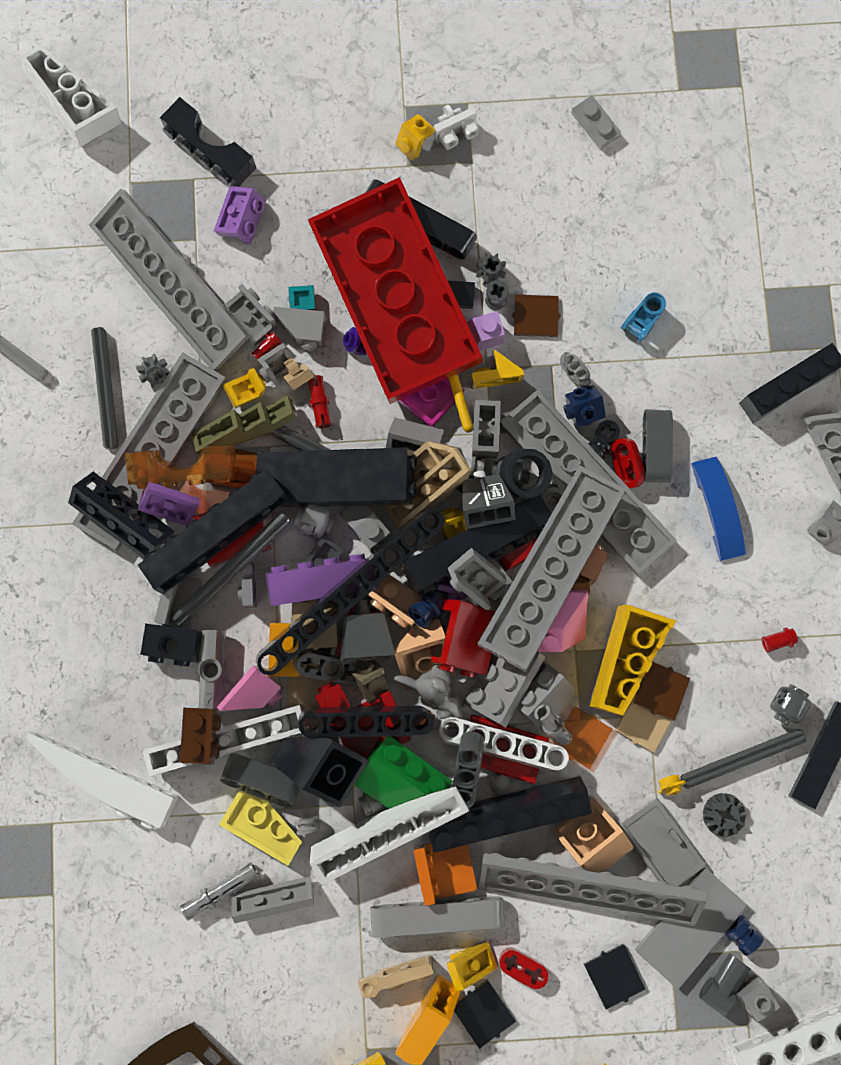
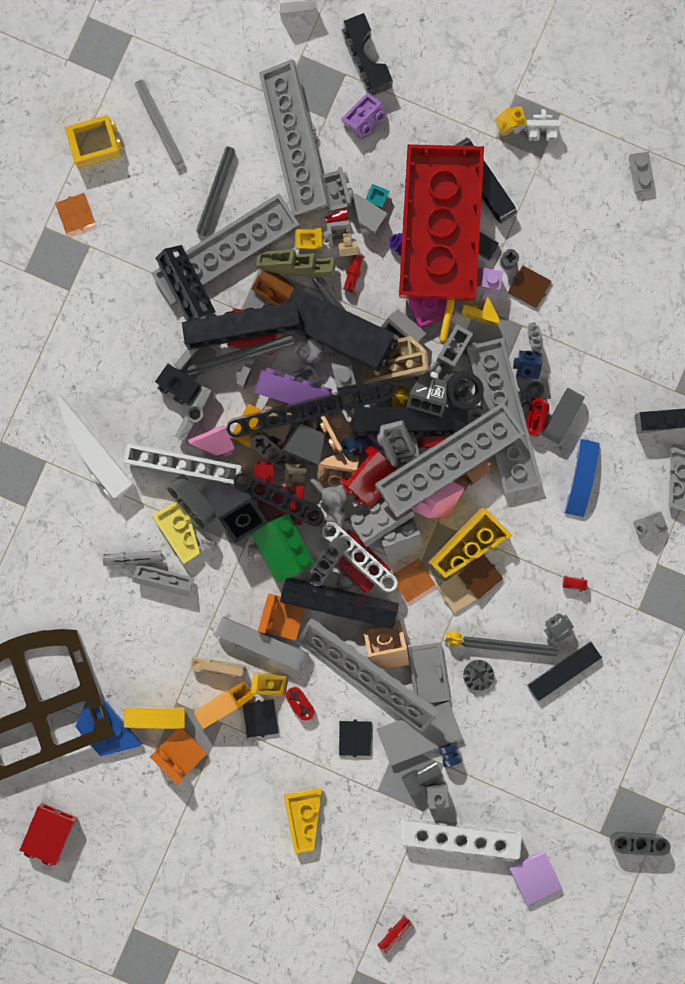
camera: 25 degrees right, 5 degrees up
(152, 370) = (253, 195): dark grey gear -> none
(168, 503) = (220, 291): medium lavender bracket -> none
(199, 736) = (168, 452): reddish brown bracket -> none
(214, 463) = (220, 261): clear orange arch -> none
(384, 833) = (254, 573): white slope -> none
(495, 264) = (519, 237): dark grey gear -> none
(553, 725) = (397, 561): light grey pin -> none
(642, 319) = (598, 326): dark azure piece -> none

